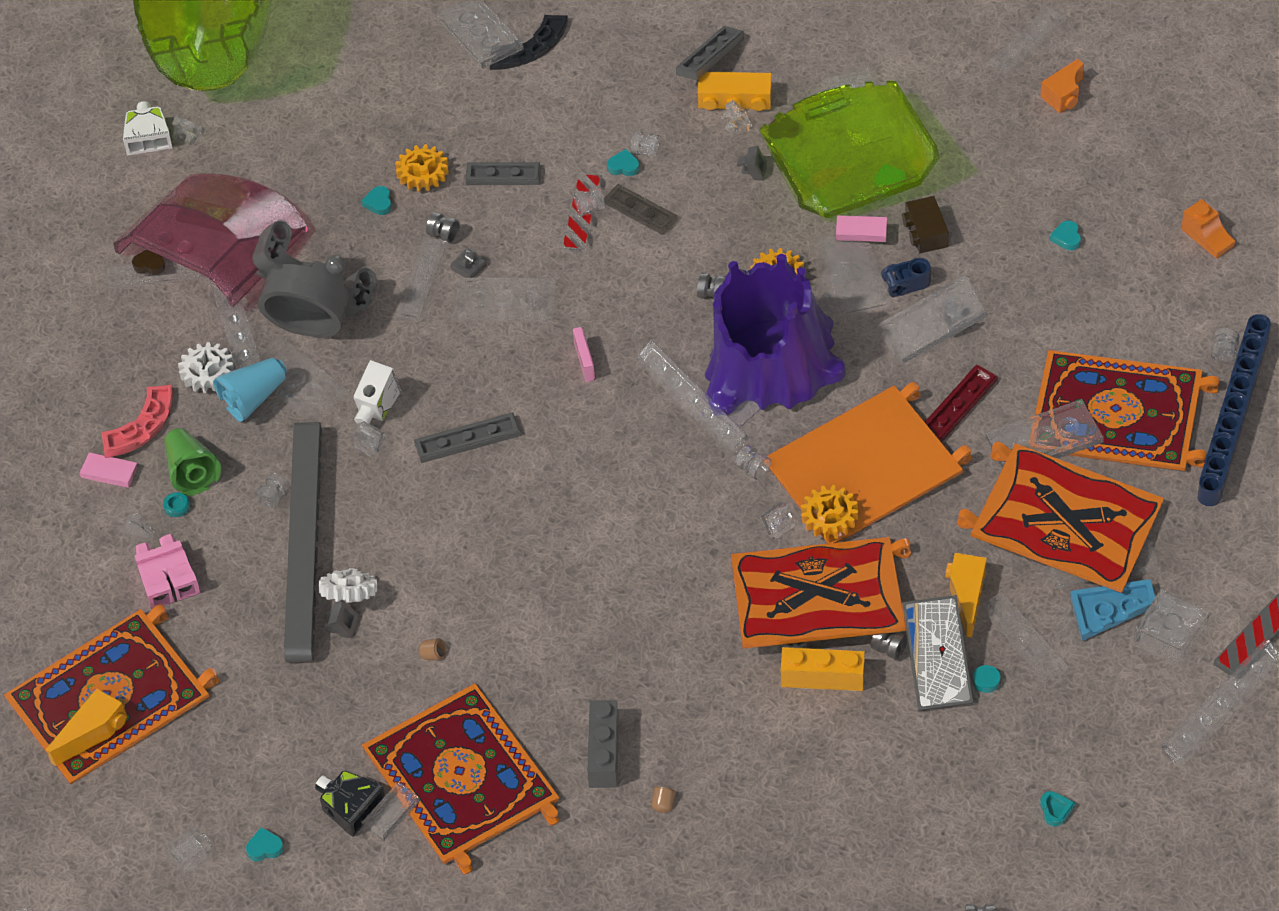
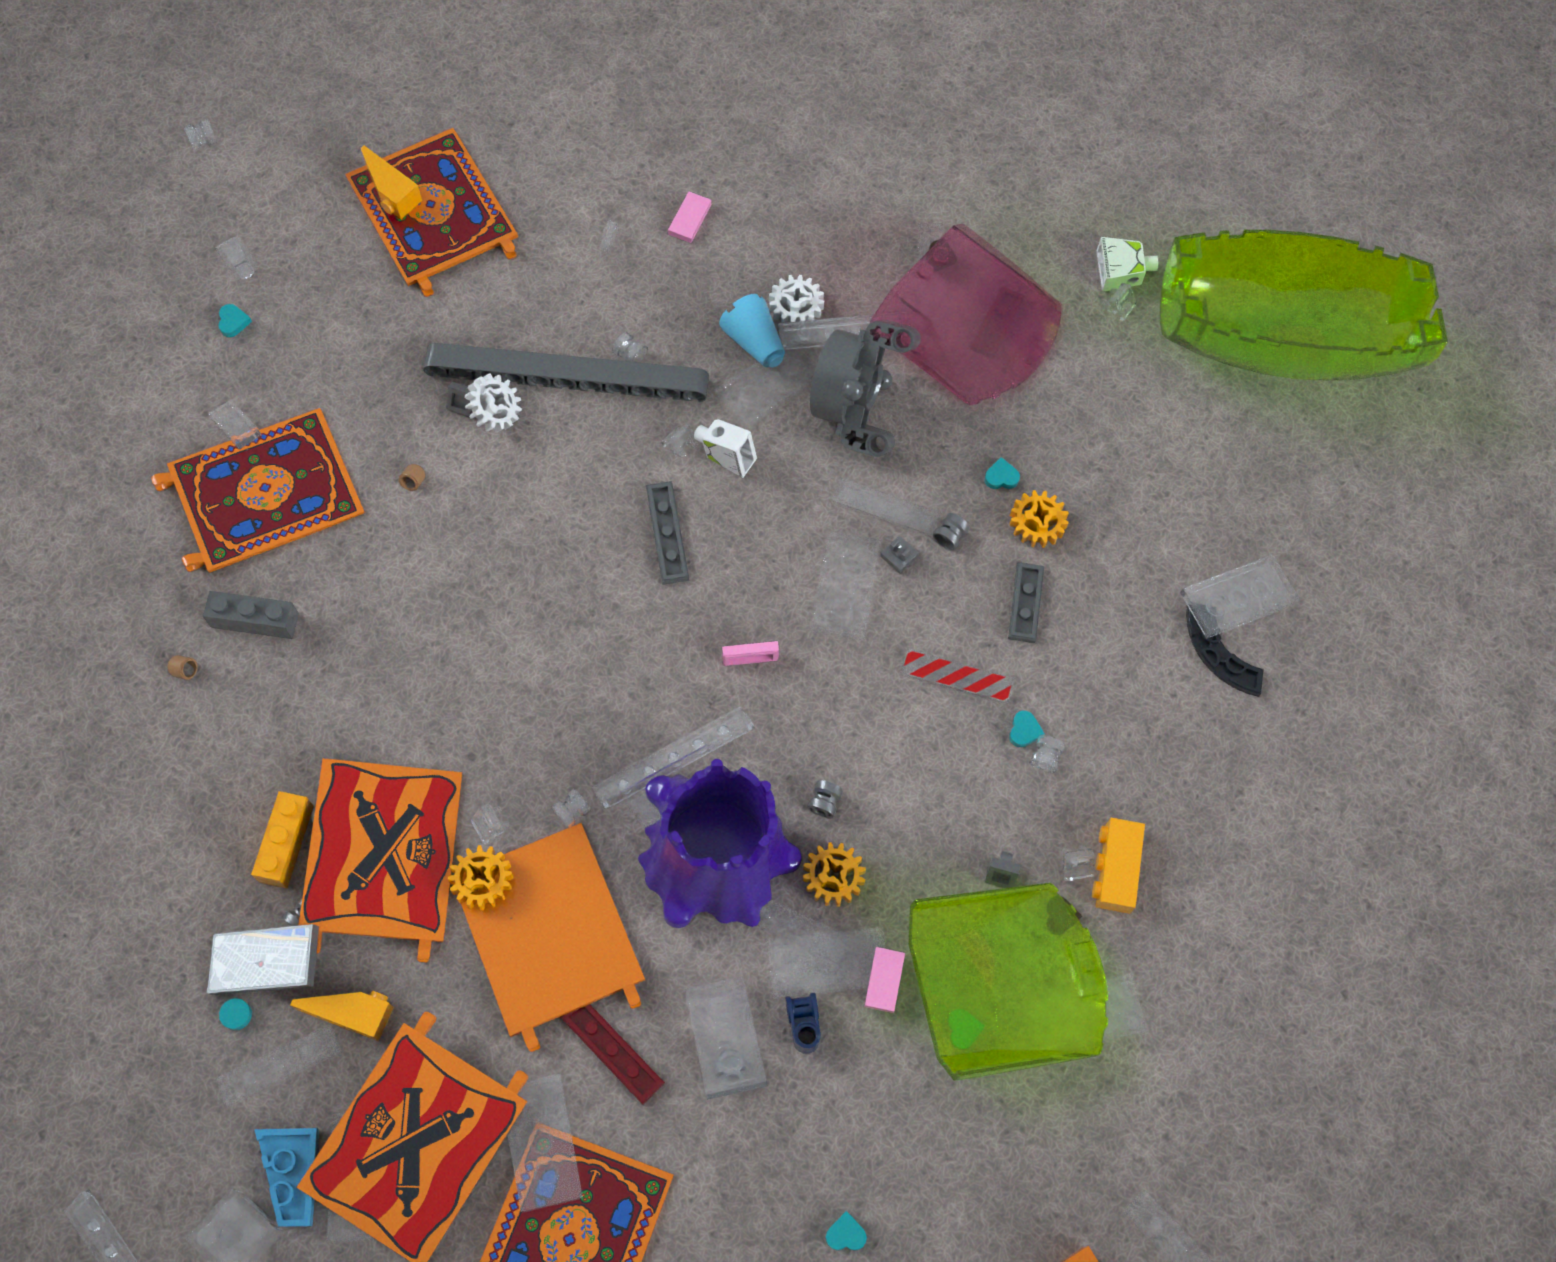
camera: 90 degrees right, 15 degrees up
(145, 427) = (735, 248): coral tile -> none
(164, 563) = (552, 254): bright pink hips -> none
(176, 504) = (636, 270): teal tile -> none
(190, 463) = (678, 276): bright green cone -> none
(349, 799) = (254, 388): black torso -> none
(589, 200) = (960, 680): clear wheel -> none
(640, 209) = (955, 740): clear smoke tile -> none
(710, 53) = (1178, 843): dark grey tile -> none
(925, 224) = (880, 1057): dark brown brick -> none
(1055, 808) = (55, 1059): teal tile -> none

